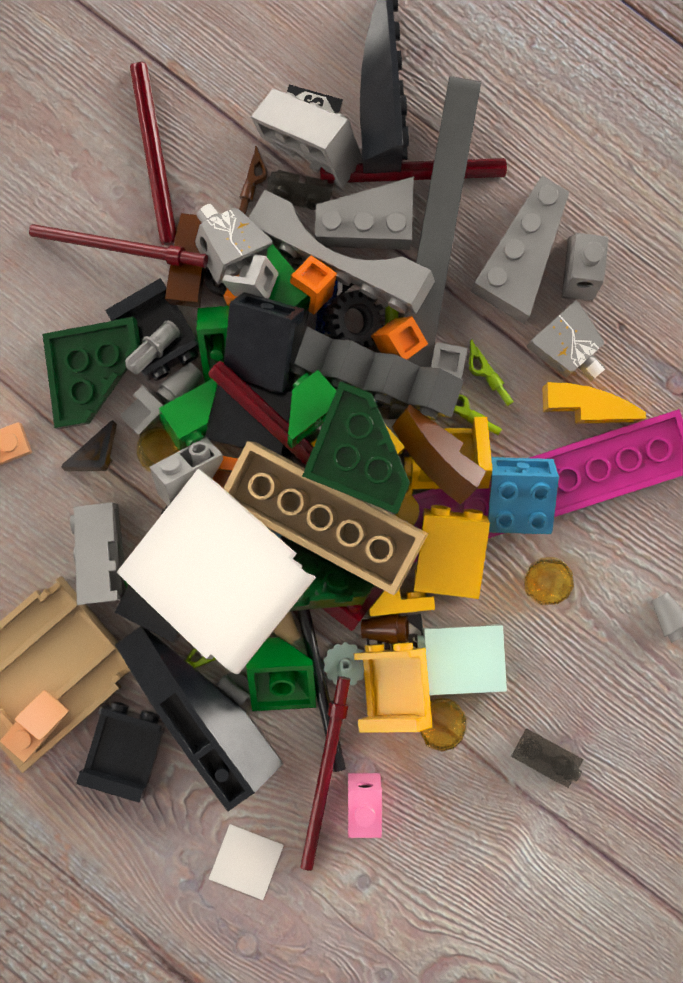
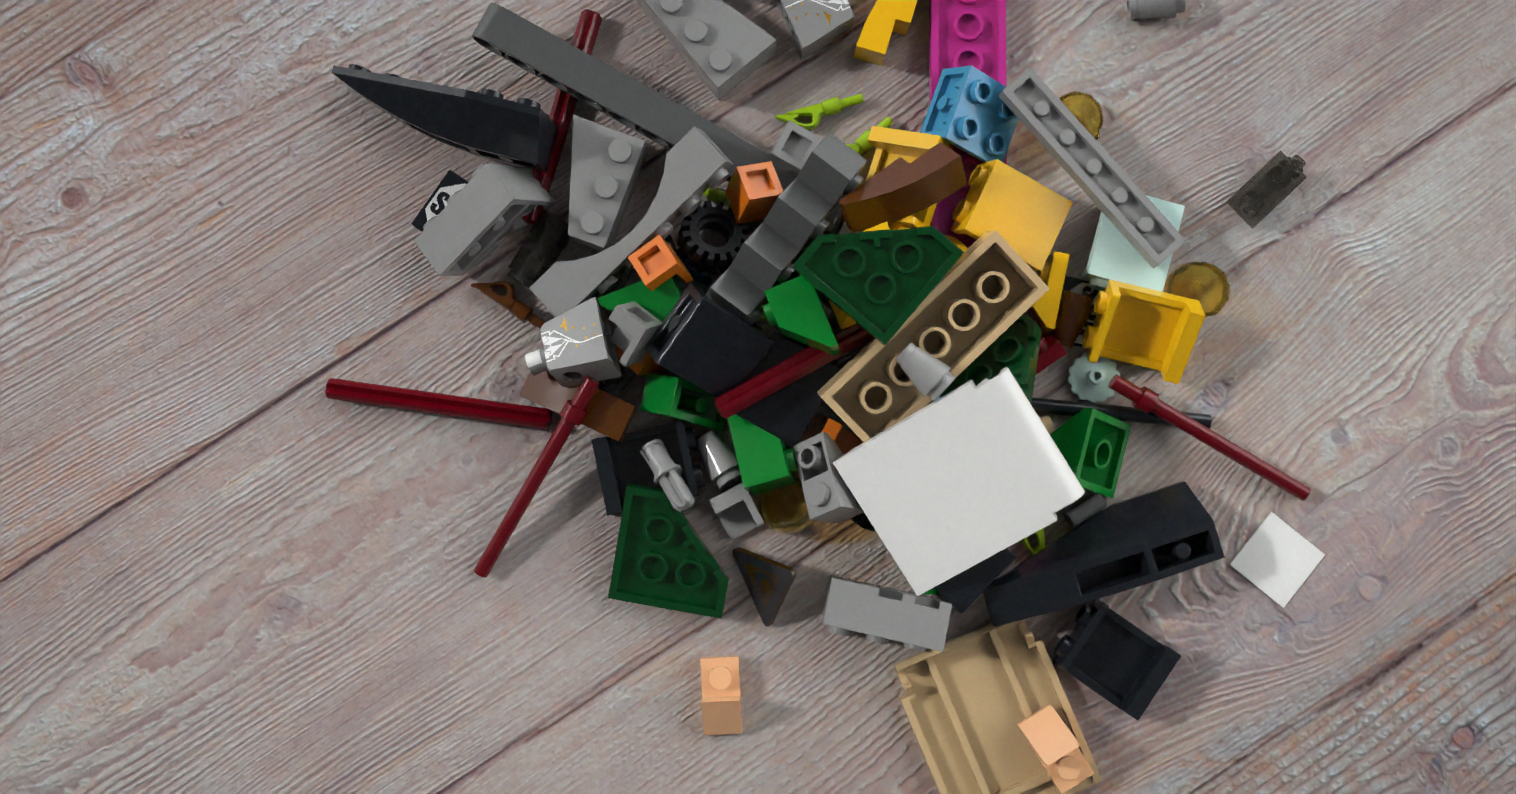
camera: 75 degrees left, 0 degrees up
(292, 516) = (925, 371): none -> light grey cone
(364, 805) = (1264, 406): bright pink torso -> none
(509, 602) = (1092, 168): none -> light grey plate

